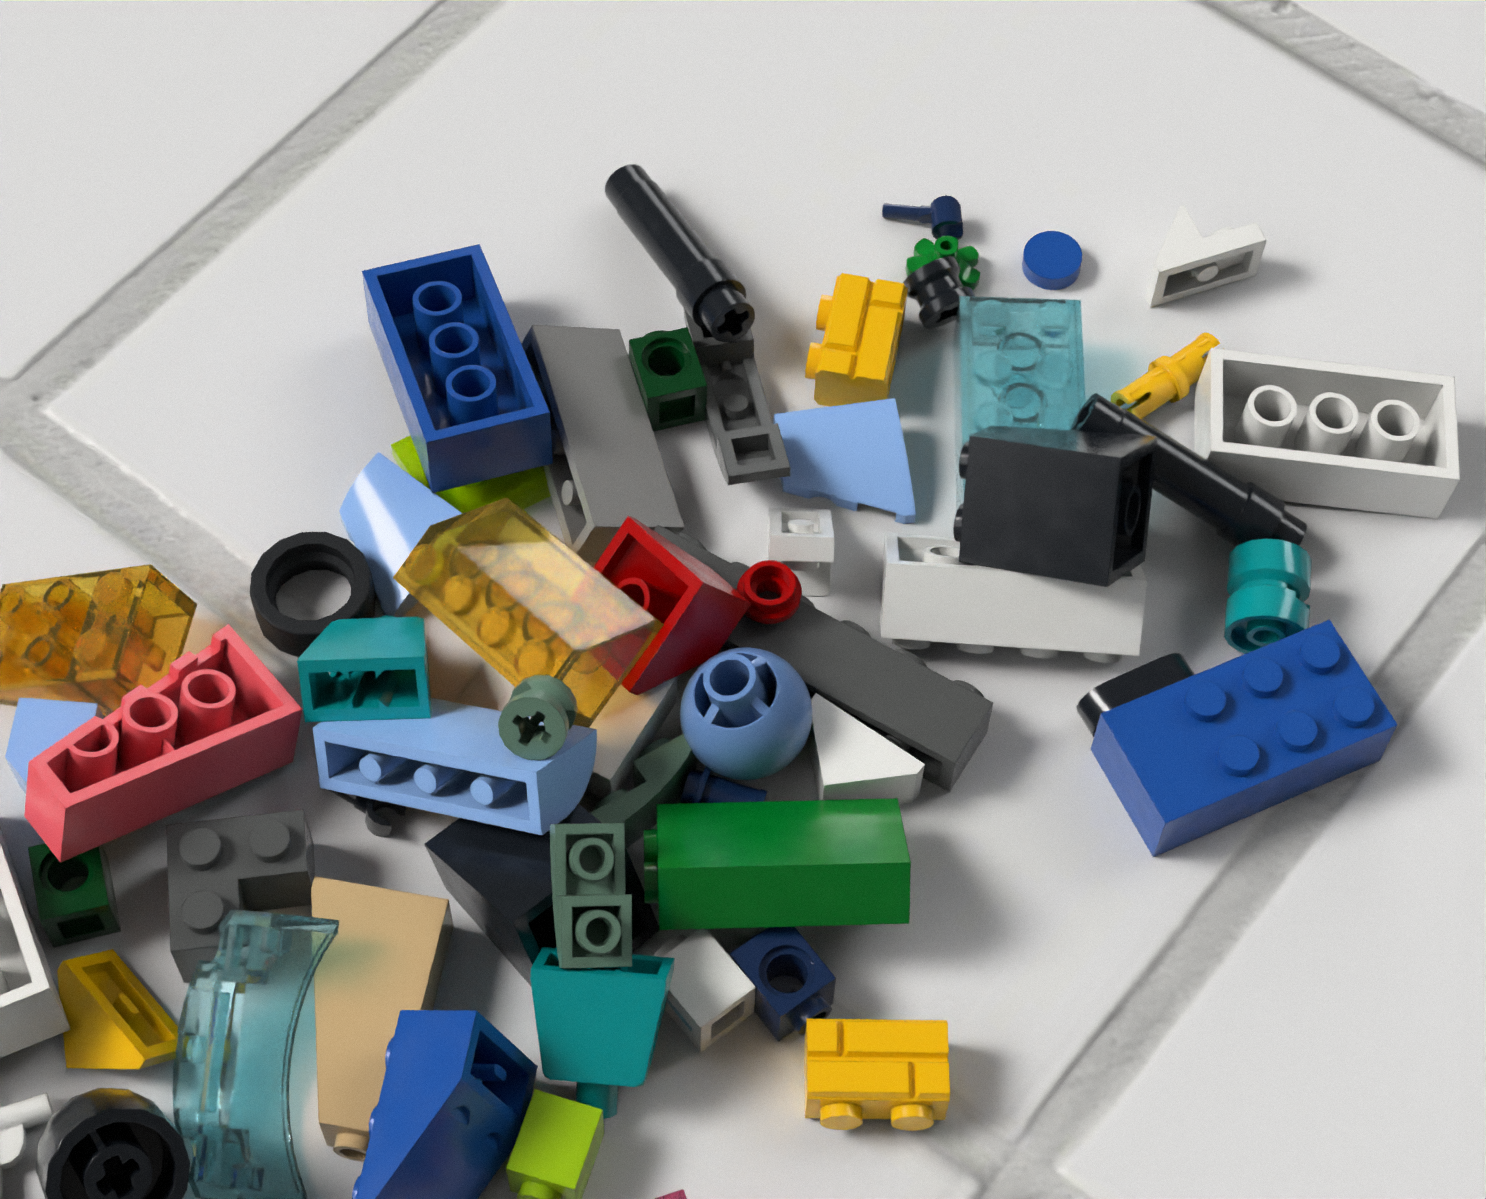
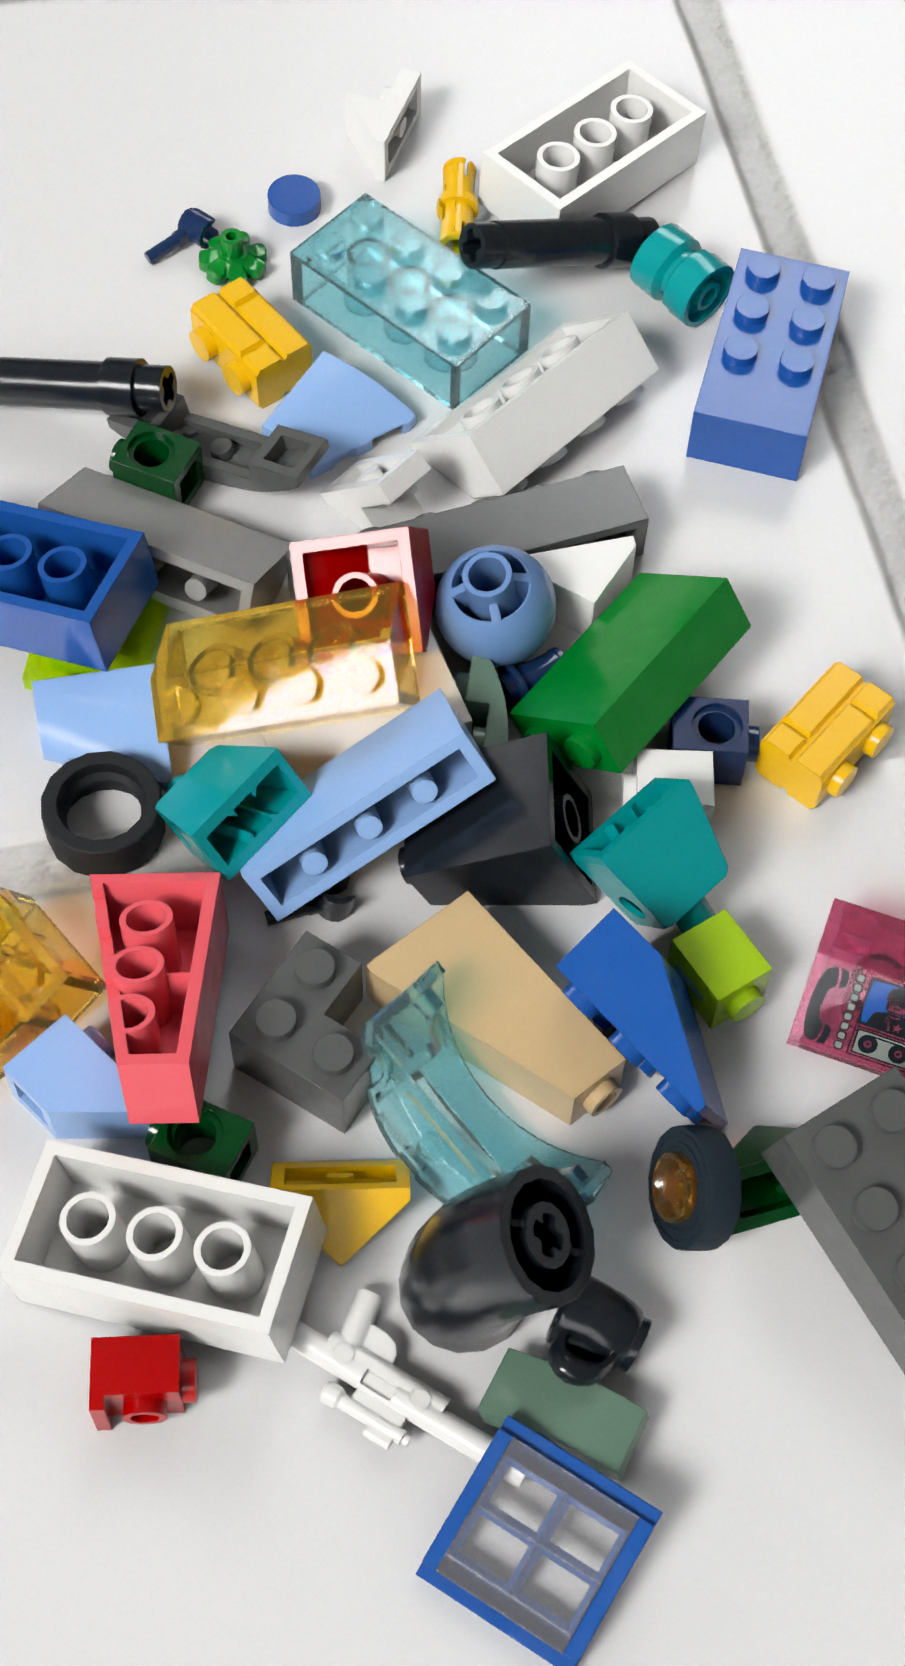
camera: 50 degrees left, 0 degrees up
(545, 701) = (403, 689): sand green wheel -> none
(590, 895) = (590, 791): sand green slope -> none
(773, 577) = (420, 508): red plate -> none
(937, 291) = (264, 267): black wheel -> none
(1056, 502) = (525, 308): black slope -> none
(1131, 686) = (681, 395): black beam -> none

